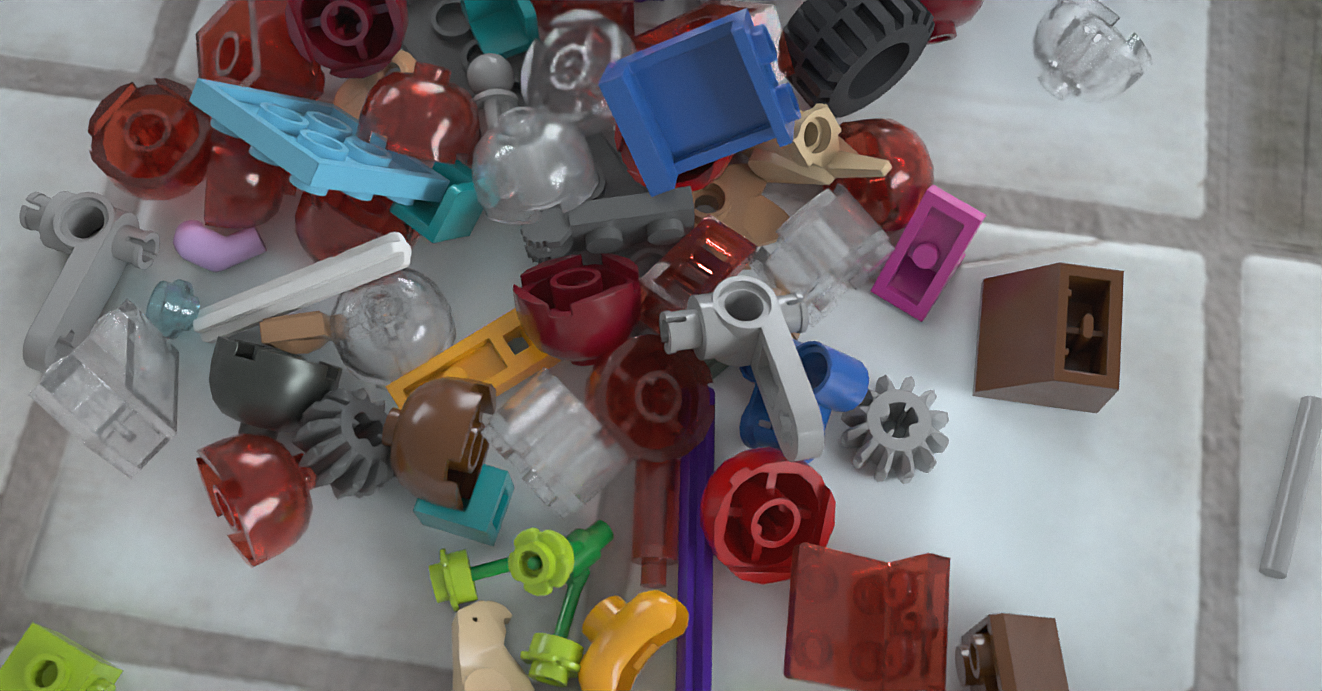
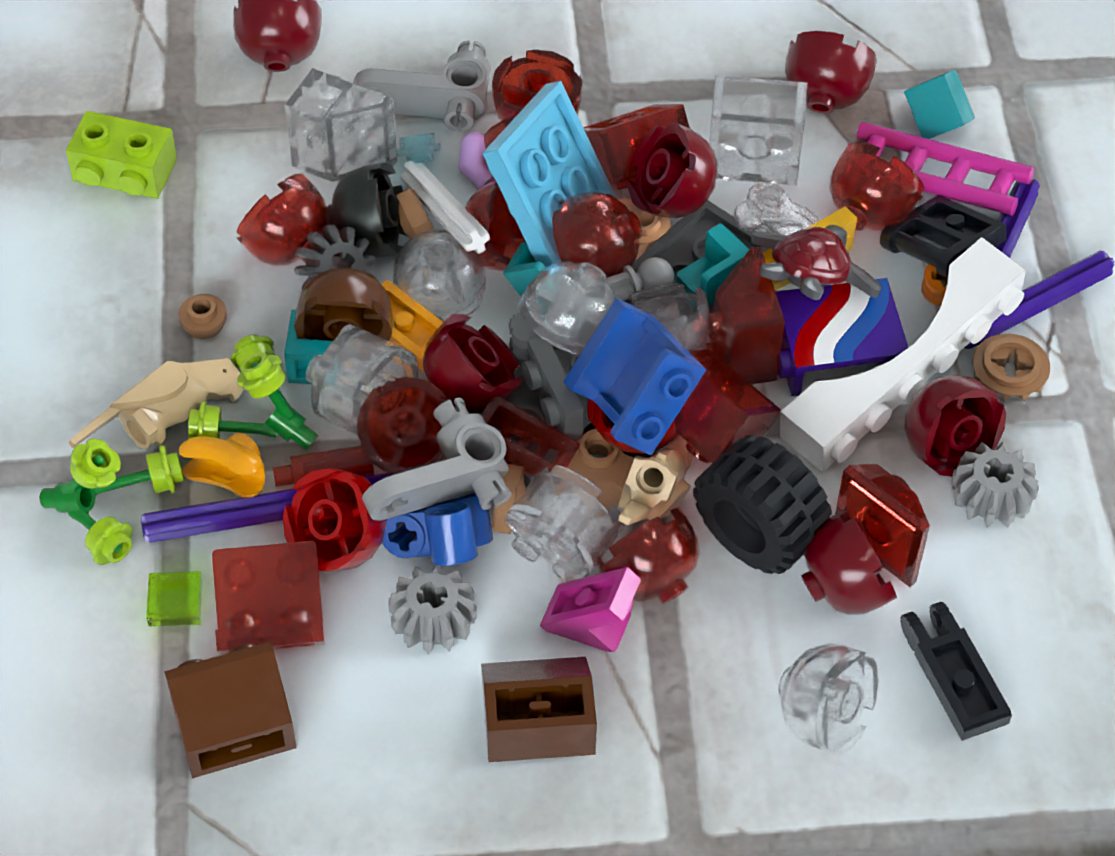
camera: 75 degrees right, 15 degrees down
(374, 651) = (202, 325): none -> medium nougat plate

